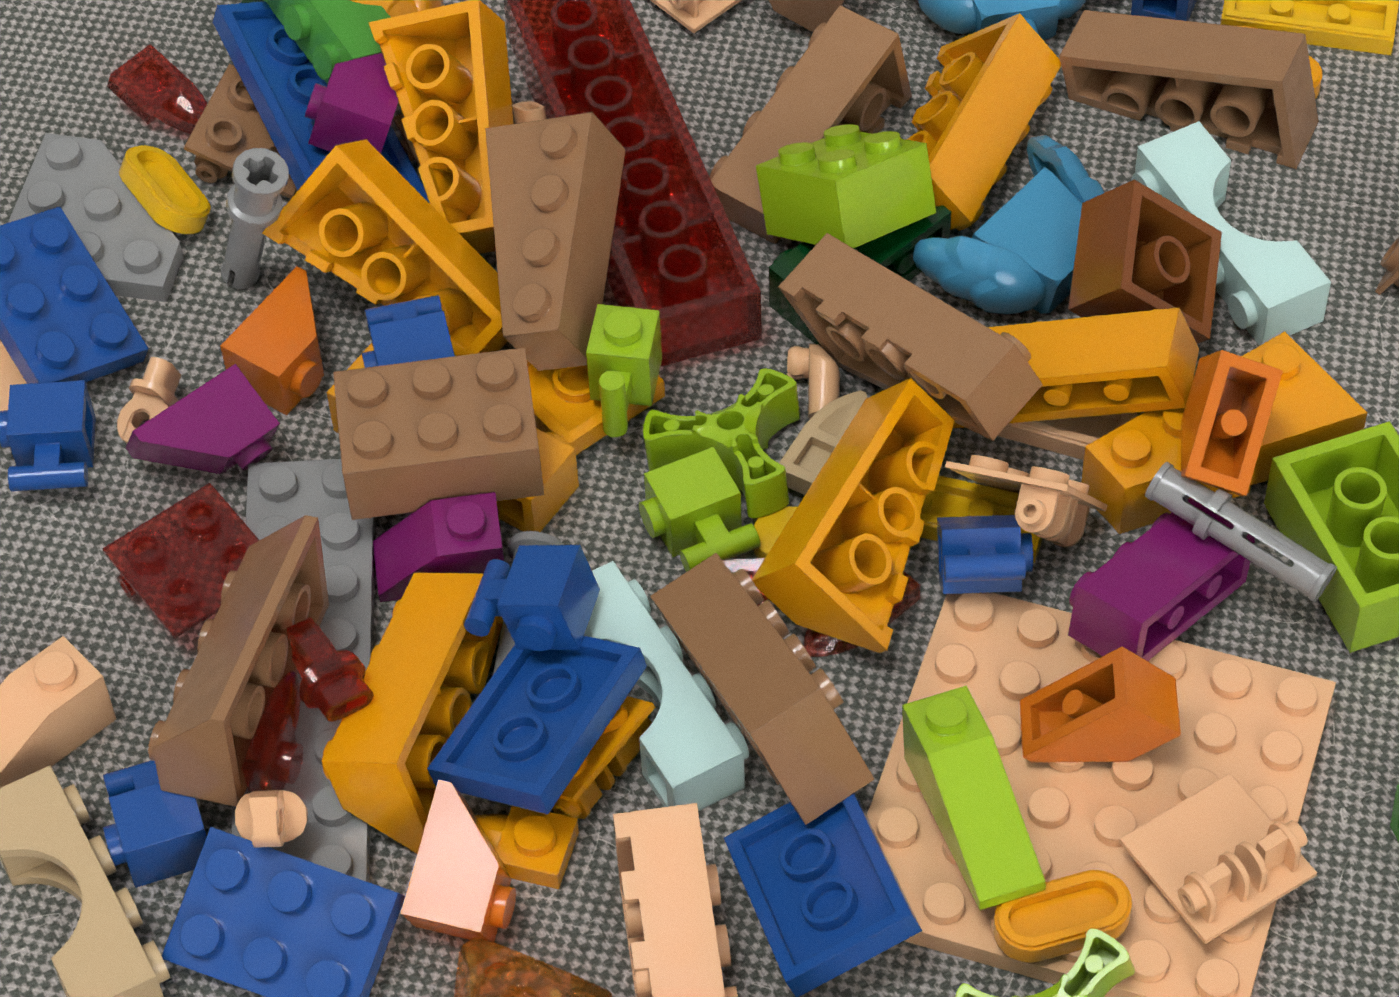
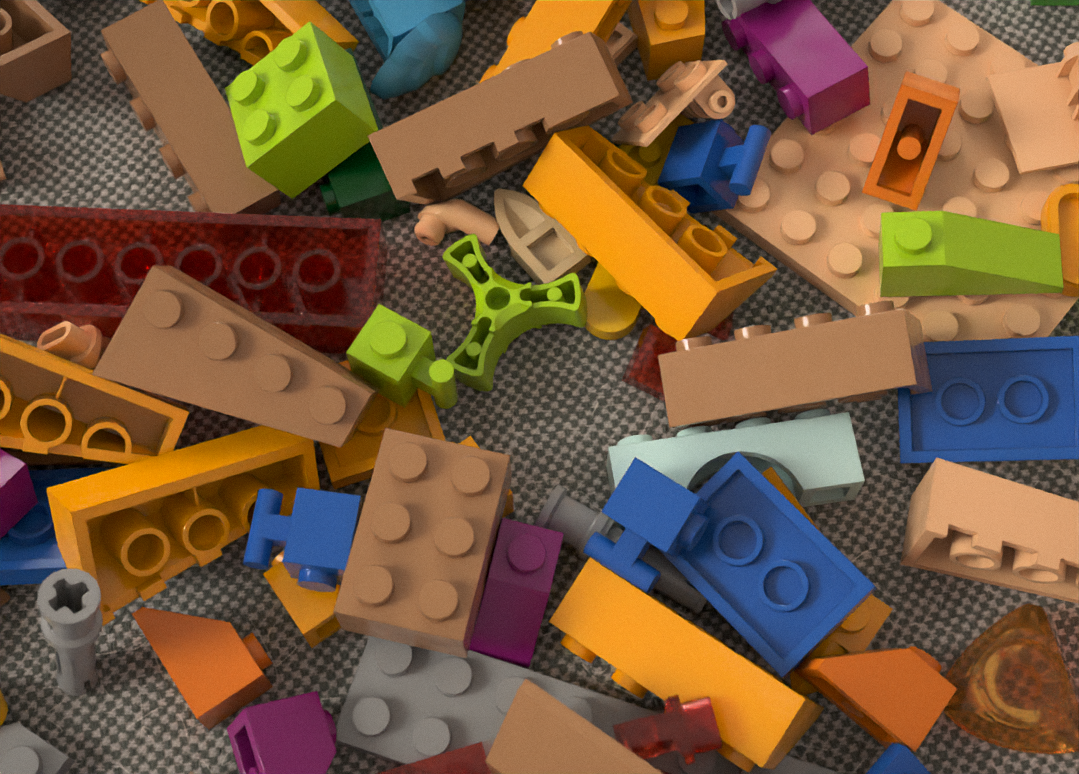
camera: 70 degrees left, 15 degrees up
(696, 510) = (557, 364): lime brick -> none

